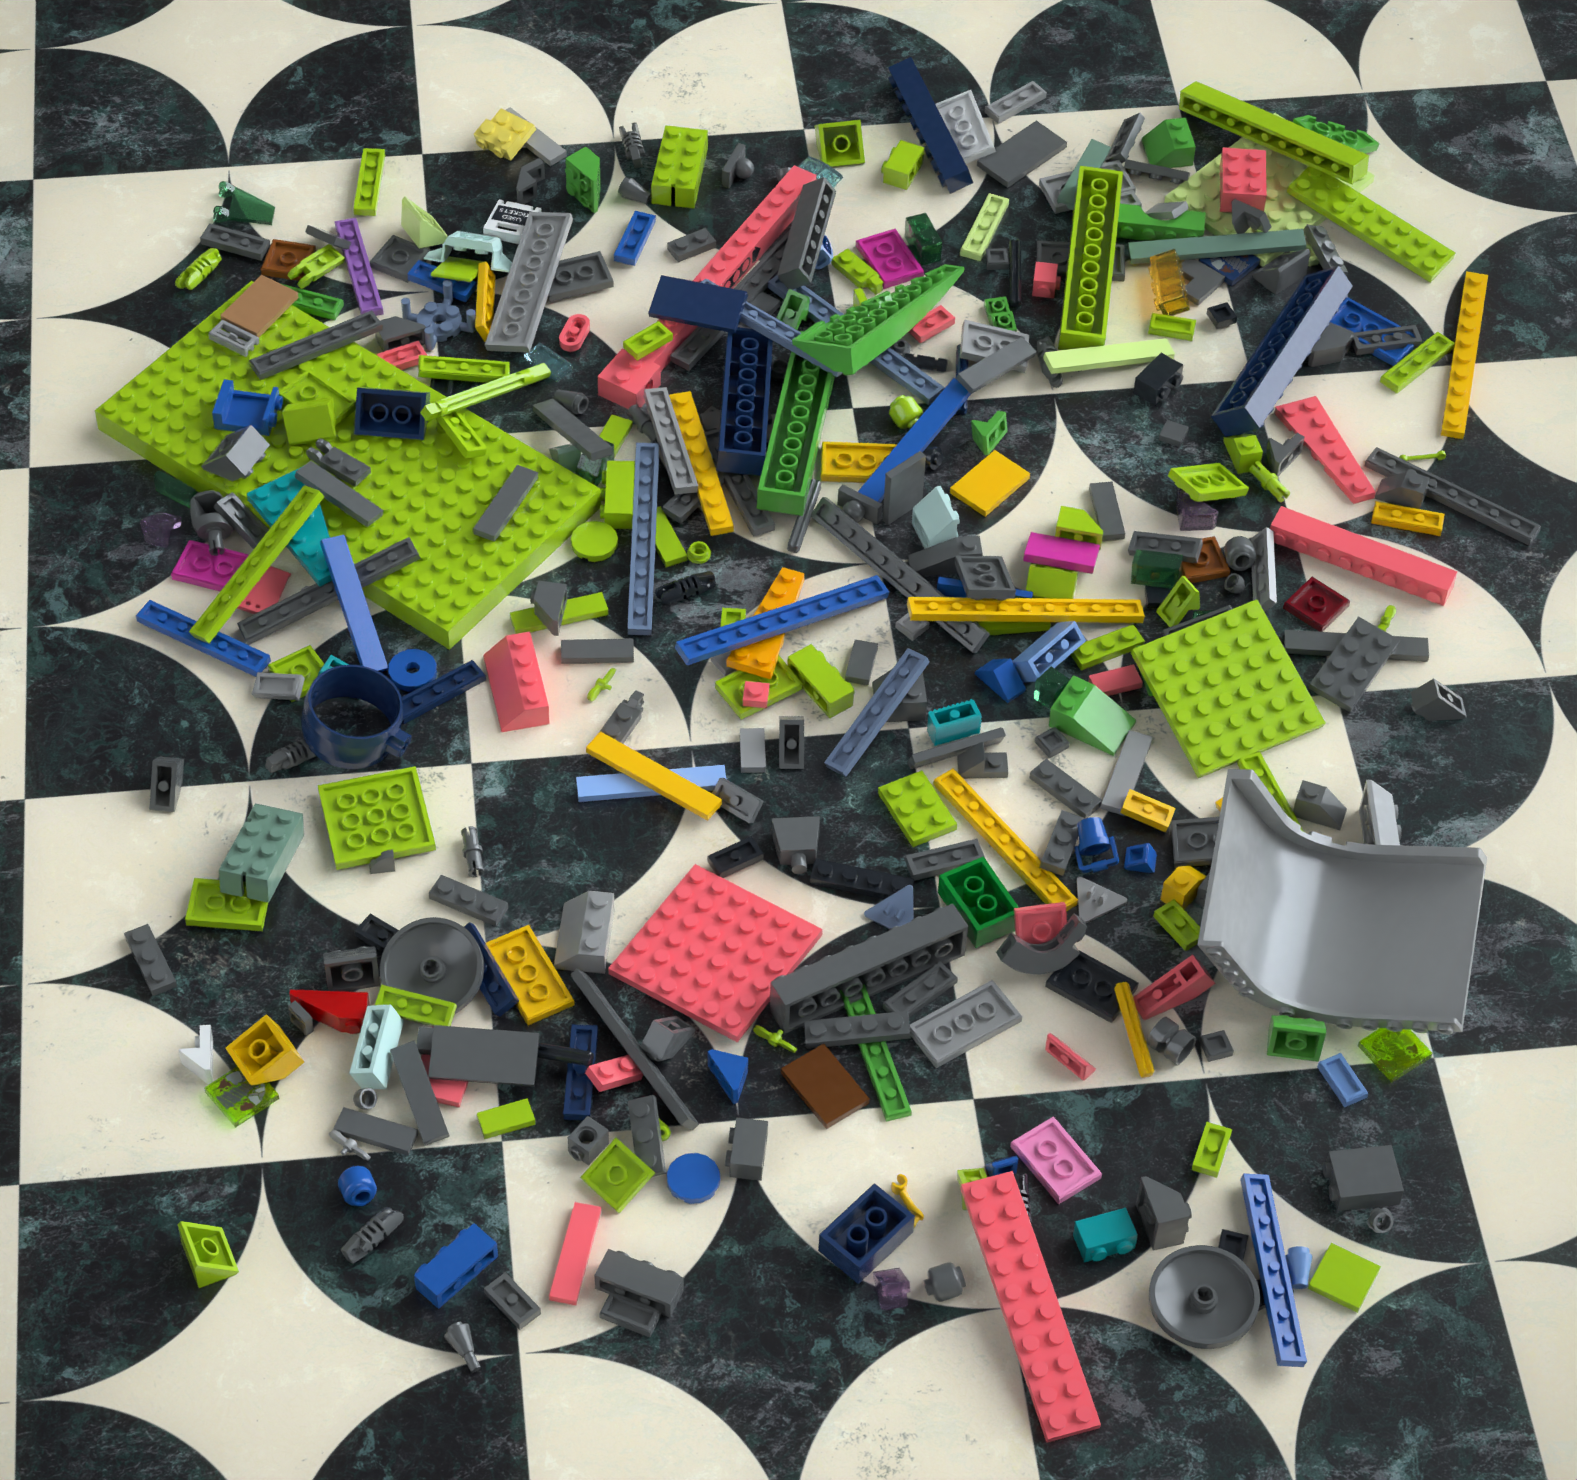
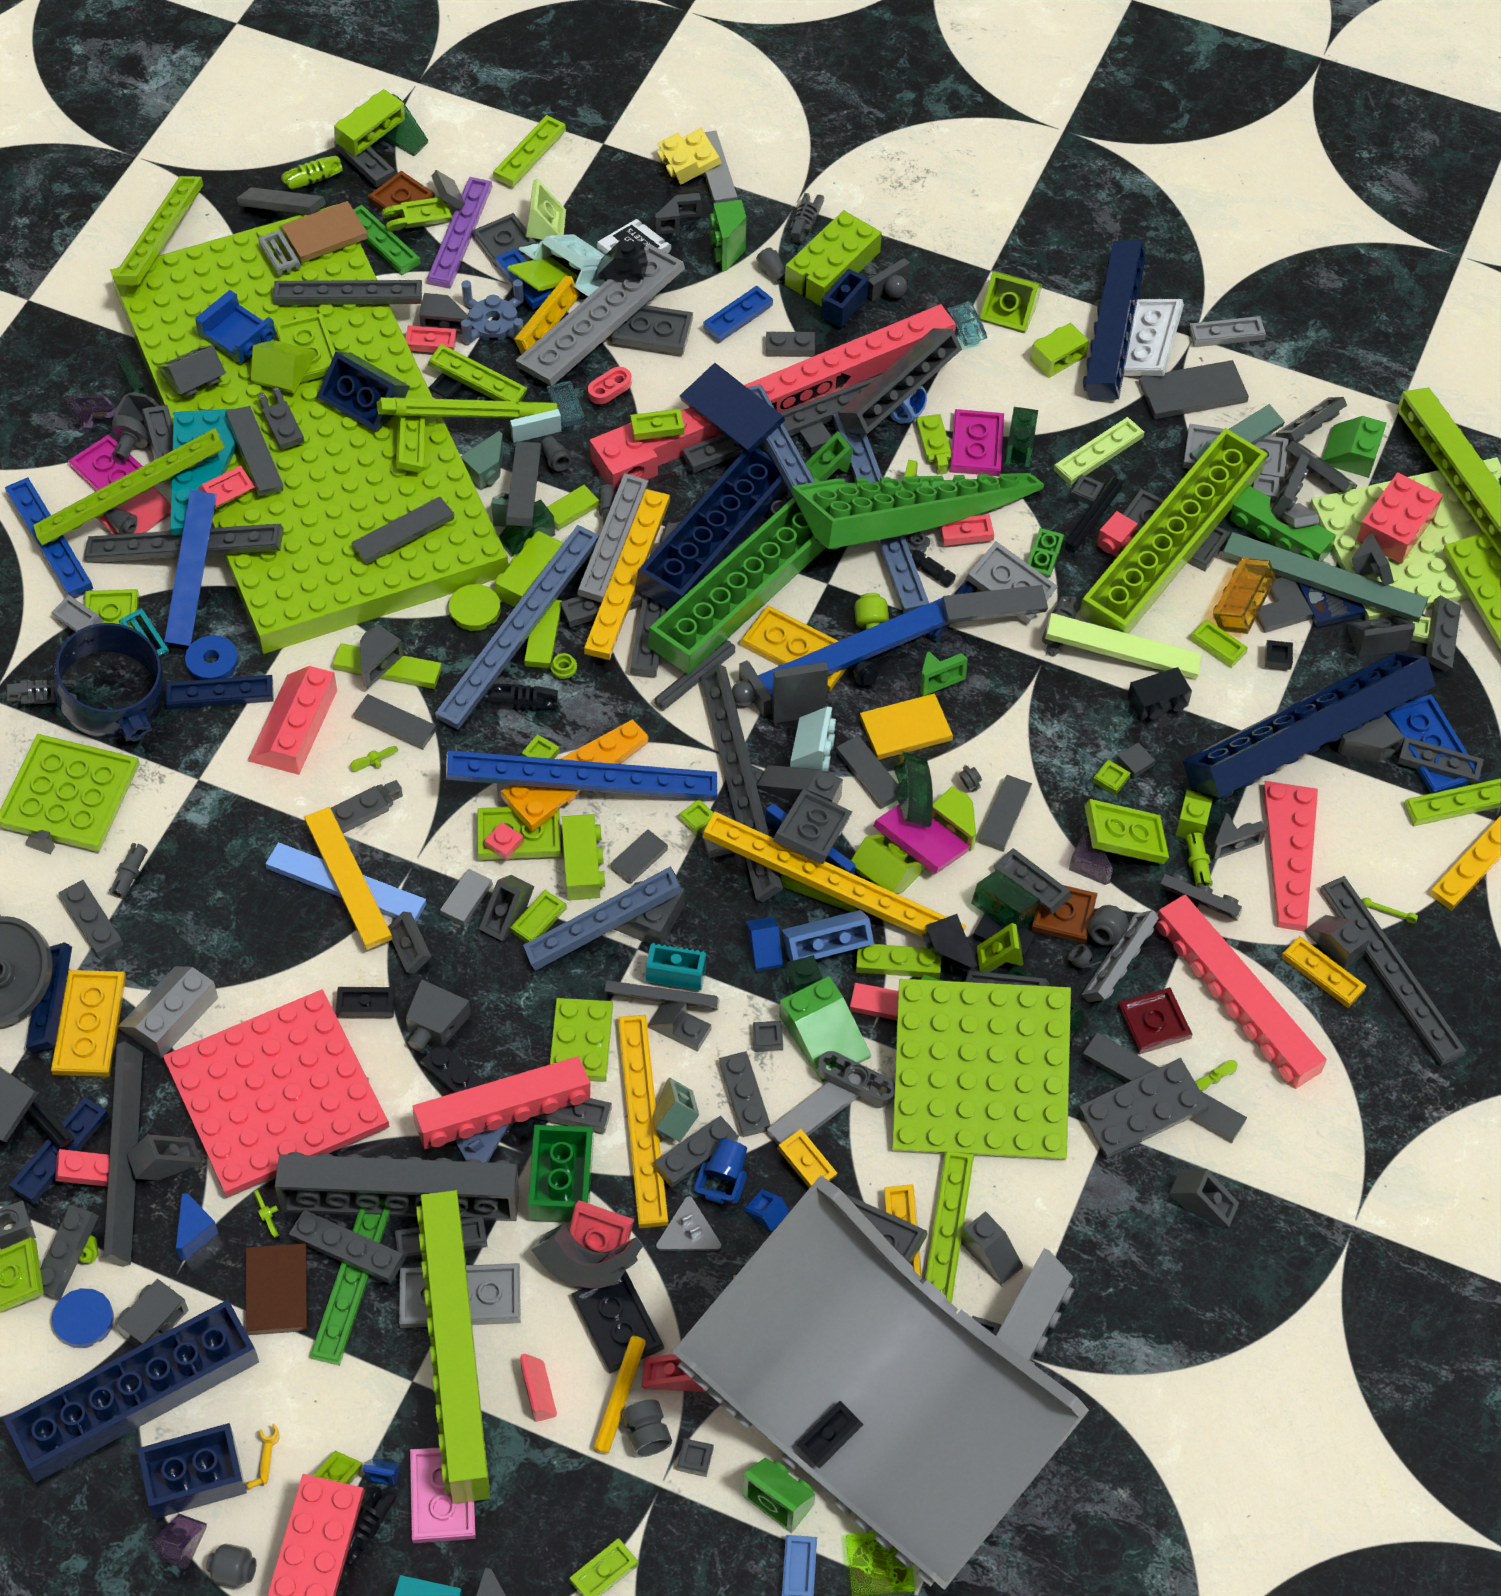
camera: 30 degrees right, 5 degrees up
(114, 363) = (158, 231): none -> lime plate
(196, 300) = (281, 201): none -> dark grey tile
(223, 209) = (369, 122): none -> lime brick
(260, 597) = (122, 521): none -> dark grey cone
(341, 525) = (228, 486): none -> coral plate
(522, 232) = (624, 262): none -> black slope
(522, 425) = (485, 461): none -> sand green slope
(540, 386) = (535, 425): none -> light aqua tile
(713, 191) = (844, 298): none -> dark blue brick
(776, 1204) = (131, 1390): none -> dark blue brick
(818, 739) = (538, 917): none -> lime tile
(883, 615) = (696, 817): none -> lime tile
(901, 873) = (501, 1102): none -> coral brick
(989, 526) = (868, 771): none -> dark grey tile
(999, 1050) = (452, 1348): none -> lime brick
(1029, 821) = (675, 1110): none -> sand green slope
(1034, 520) = (914, 789): none -> clear green slope
(1065, 497) = (970, 778): none -> dark grey plate
(1123, 744) = (853, 1067): none -> dark grey beam
(1142, 613) = (949, 941): none -> black slope
(1147, 191) = (1291, 485): none -> dark grey plate
(1164, 453) = (1111, 777): none -> lime tile
(1306, 977) = (829, 1434): none -> black plate
(1310, 503) = (1202, 895): none -> dark grey plate

